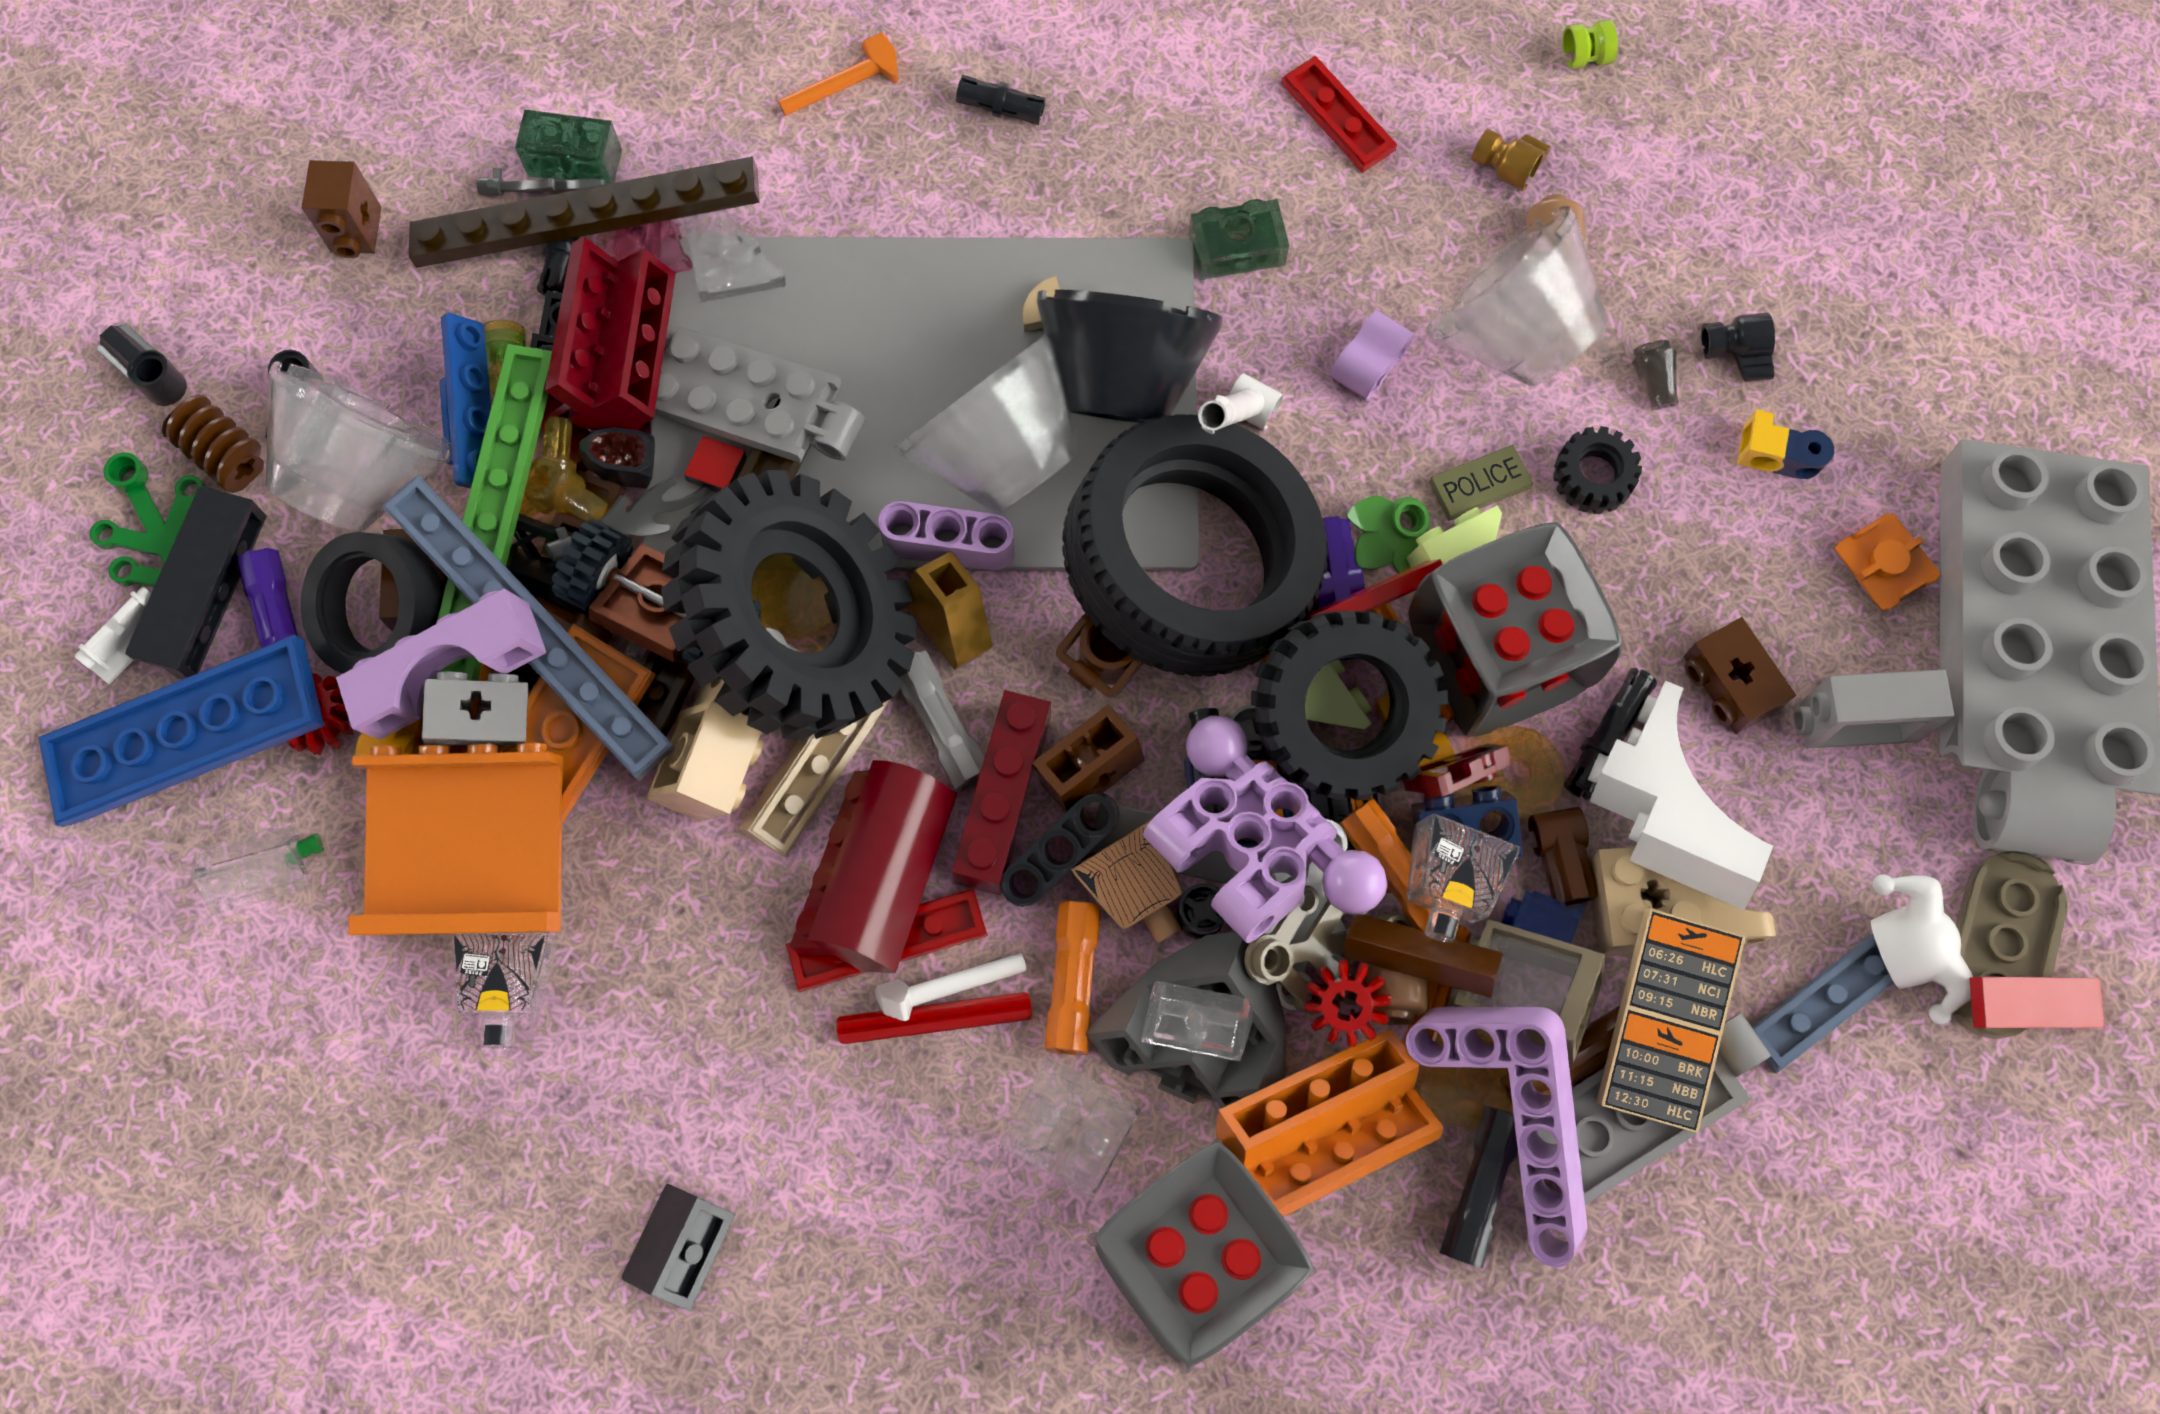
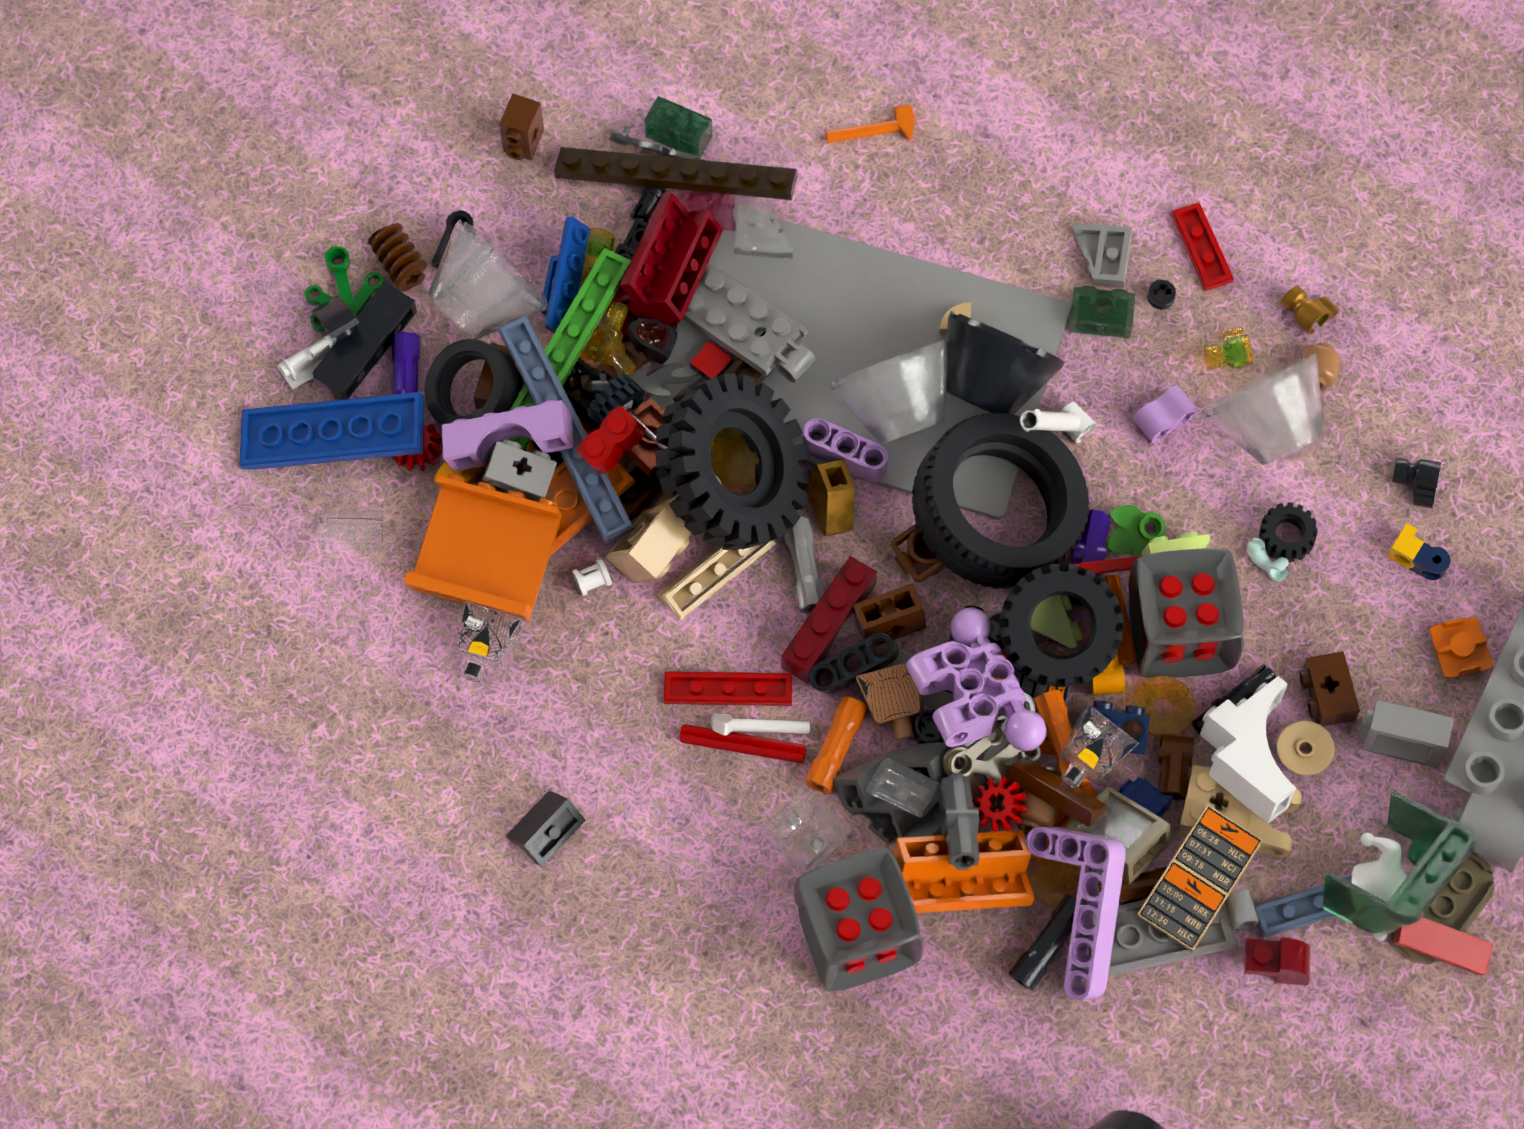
camera: 20 degrees right, 5 degrees down
(138, 561) = (336, 318): none -> black slope
(142, 365) = (365, 192): black piece -> none
(310, 846) = (389, 525): green piece -> none
(594, 636) = (607, 444): none -> red brick
(635, 834) = (591, 577): none -> white bush
(875, 867) = (735, 639): dark red brick -> none
(1000, 99) = (974, 173): black pin -> none
(1212, 157) = (1105, 252): none -> light grey wing
(1304, 1055) = (959, 821): none -> dark grey piece
(1312, 180) = (1169, 299): none -> black bush
(1435, 241) = (1234, 352): none -> clear yellow piece
(1459, 770) = (1107, 689): dark red wing -> none
(1481, 482) = (1209, 517): olive tile -> none
(1566, 513) = (1258, 555): none -> light aqua arm
(1591, 43) = (1398, 247): lime wheel -> none
(1657, 371) = (1353, 481): clear smoke cone -> none
(1752, 762) = (1307, 735): none -> tan piece
(1819, 1106) = (1284, 959): none -> dark red brick
(2006, 880) = (1436, 851): none -> clear green windscreen

